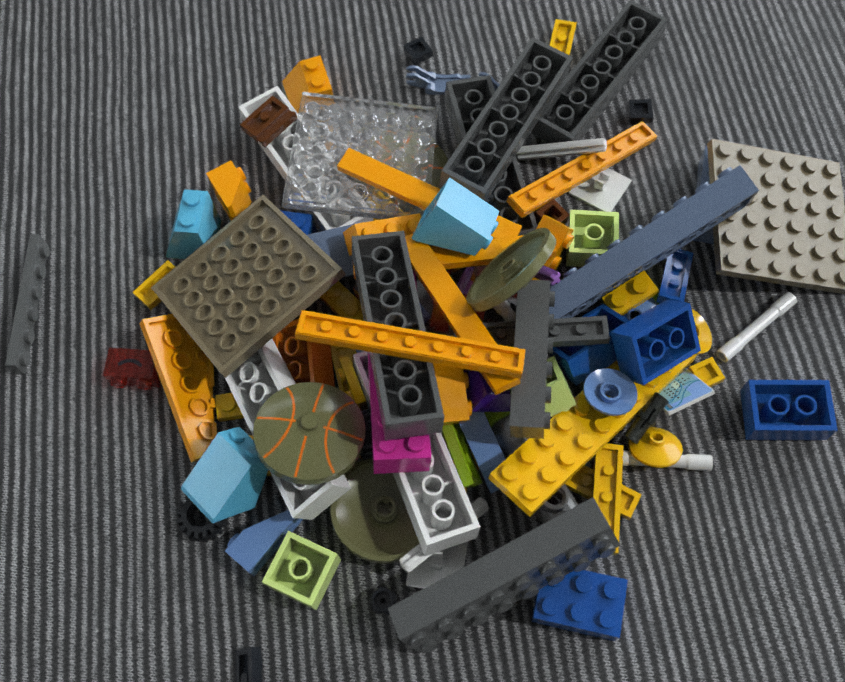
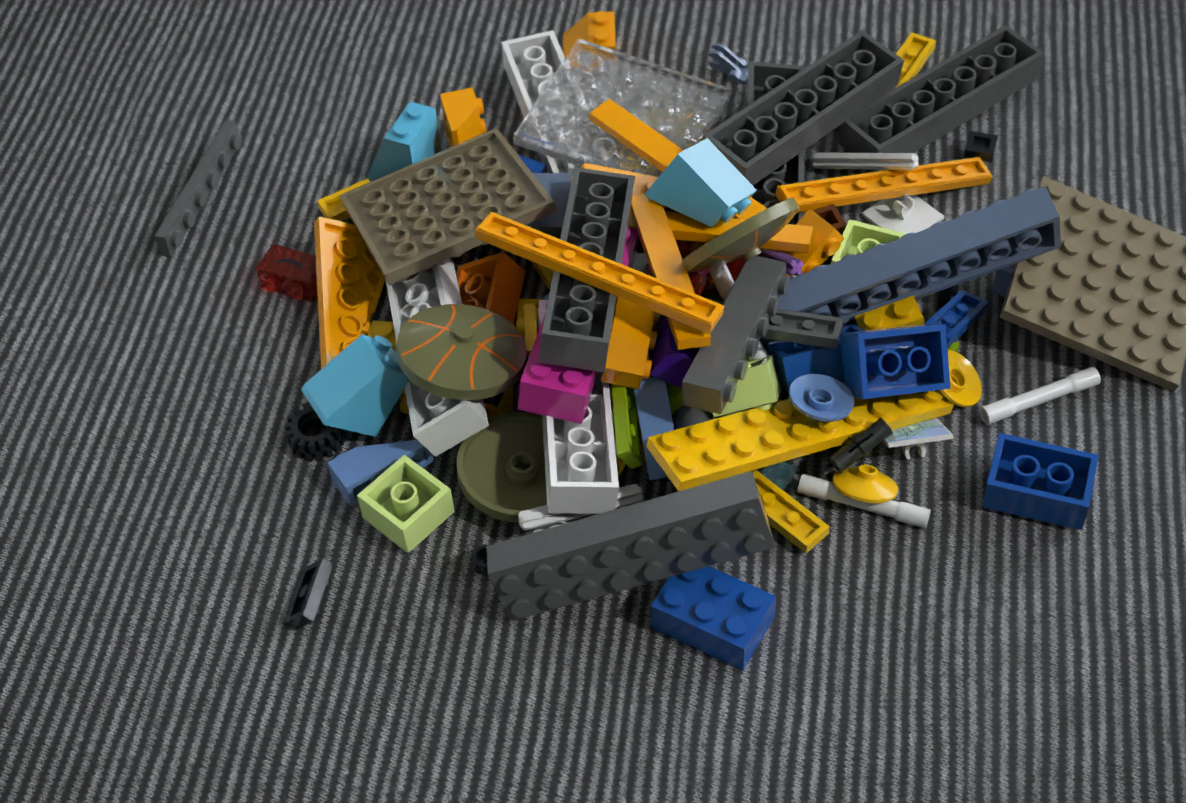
camera: 15 degrees right, 15 degrees down
(268, 121) = (529, 60): reddish brown plate -> none
(418, 50) = (733, 33): black plate -> none
(608, 484) = (786, 511): yellow plate -> none
(708, 372) = (960, 425): yellow plate -> none

